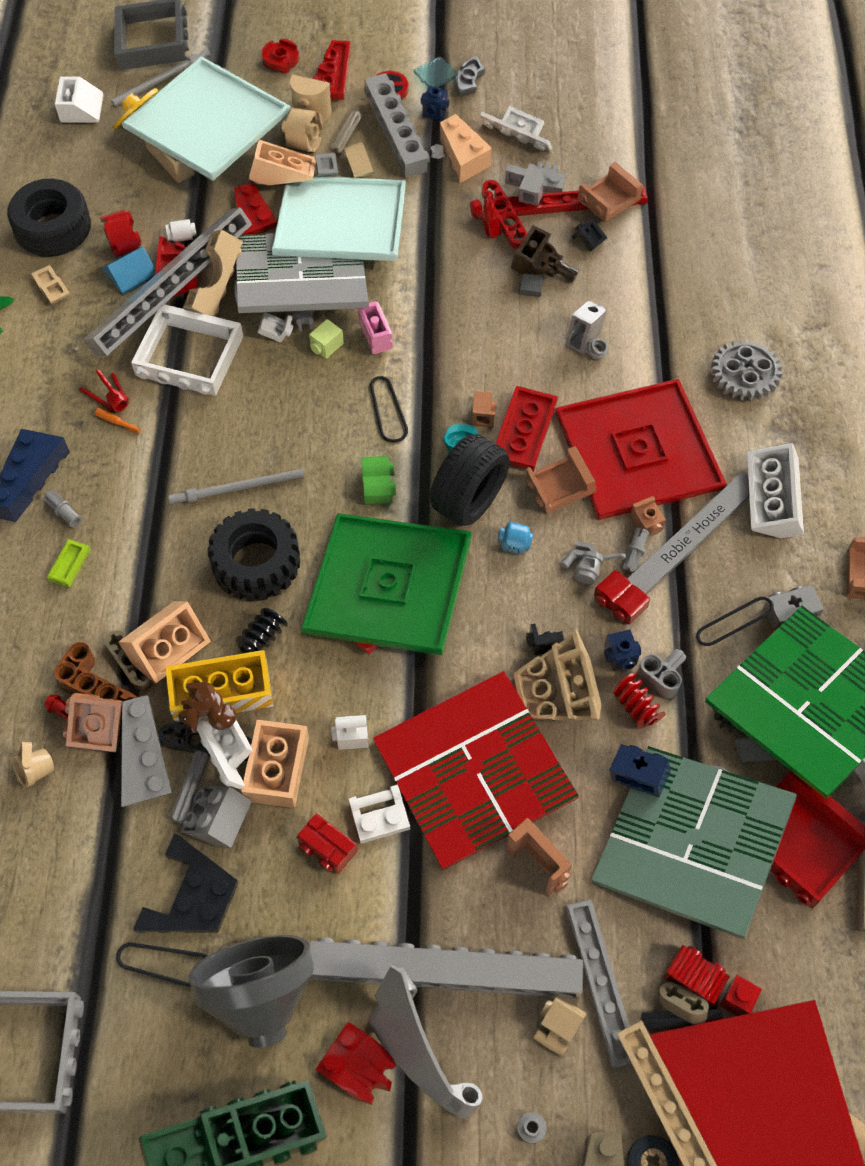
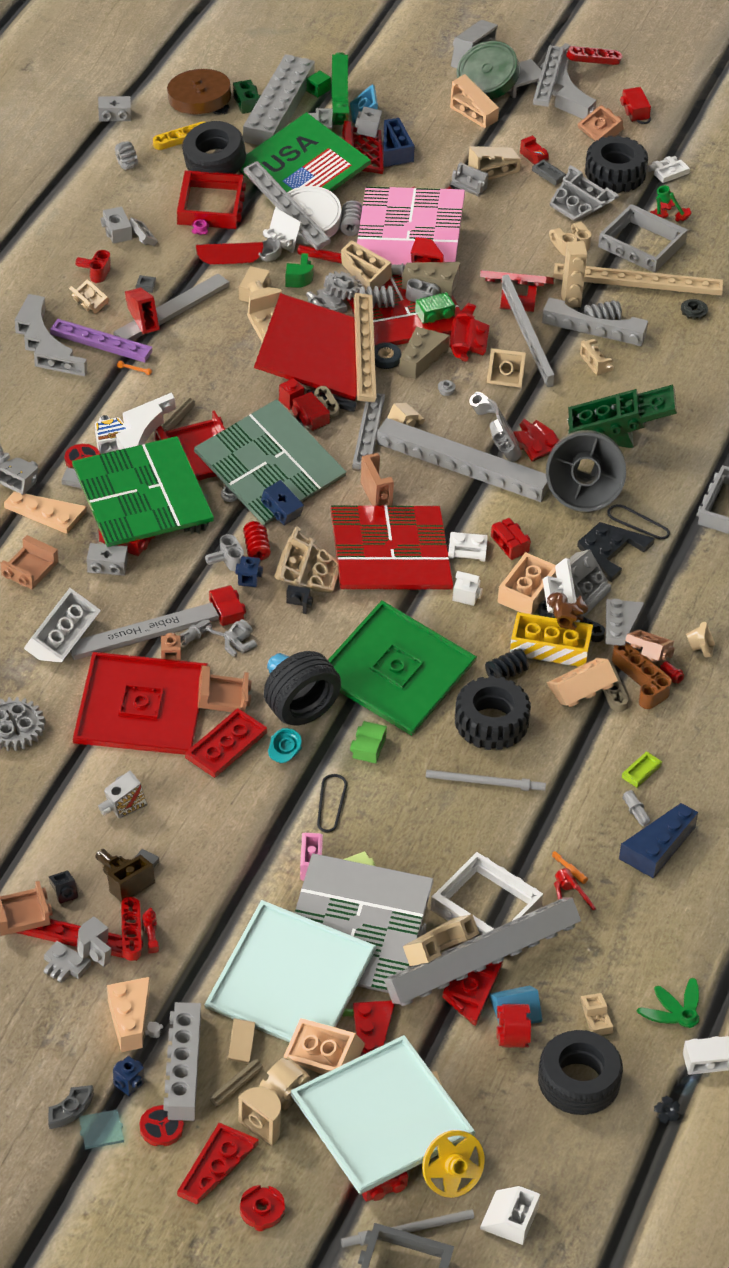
camera: 160 degrees left, 15 degrees down
(180, 230) = (452, 1022): white brick -> none
(326, 164) = (278, 1038): light grey tile -> none
(483, 409) = (253, 765): nougat brick -> none
(520, 125) = (58, 1019): white bracket -> none
(739, 628) = (153, 570): black piece -> none

